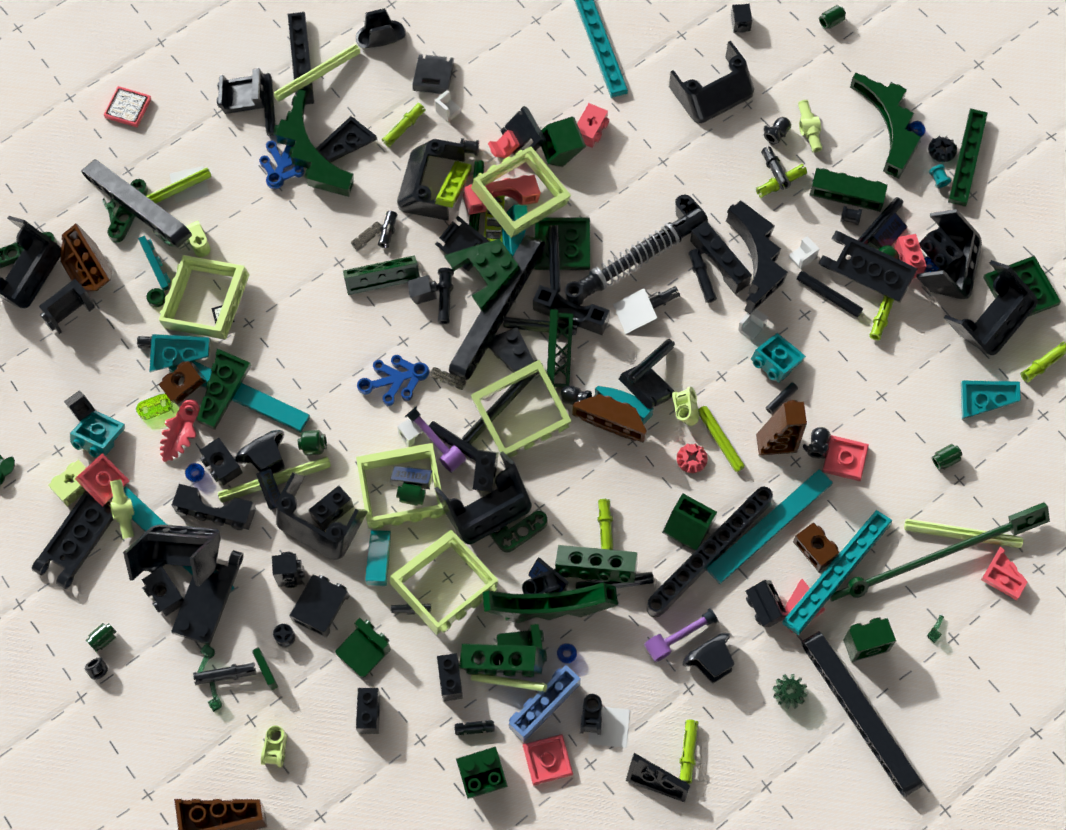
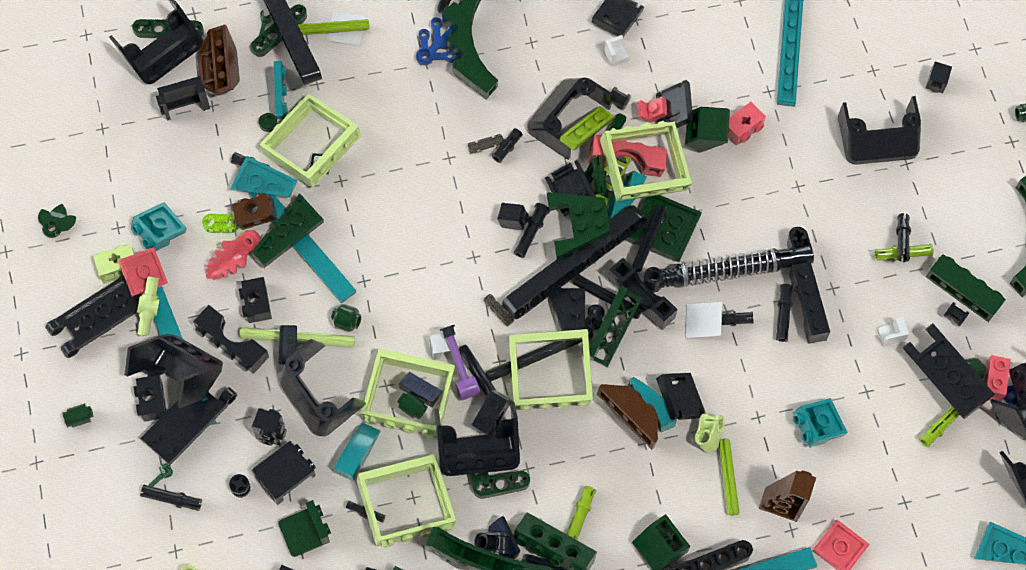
camera: 20 degrees right, 0 degrees up
(79, 405) = (153, 194): black brick -> none
(94, 667) = (61, 440): black tile -> none
(194, 467) = (229, 295): clear blue plate -> none
(198, 240) = (329, 83): yellowish green piece -> none
(214, 703) = (151, 521): clear green hand -> none
(263, 452) = (298, 308): black piece -> none
(268, 676) = (208, 509): dark green tile -> none
(331, 508) = (335, 386): black brick -> none
(345, 139) = (506, 44): black wing -> none
(381, 275) = (481, 186): dark green fence -> none
(396, 378) = (450, 289): blue plant -> none
(407, 120) = (566, 52): lime pin -> none
(484, 220) = (599, 174): none -> dark green pin
(540, 347) = (599, 314): none -> black bush
(572, 394) = (607, 375): black animal -> none
(650, 360) = (695, 374): black axle -> none
(692, 466) = (689, 491): coral gear -> none
(753, 324) = (811, 379): white panel -> none
(756, 233) = (854, 292): black arch -> none
(778, 130) = (922, 202): black animal -> none
(781, 398) = (806, 463): black piece -> none
(810, 126) = (957, 210): yellowish green pin -> none
(819, 443) = (822, 521): black animal -> none
(829, 293) = (900, 382): black axle -> none
(889, 231) = (987, 345): slope -> none
(894, 206) = (983, 332): black axle -> none

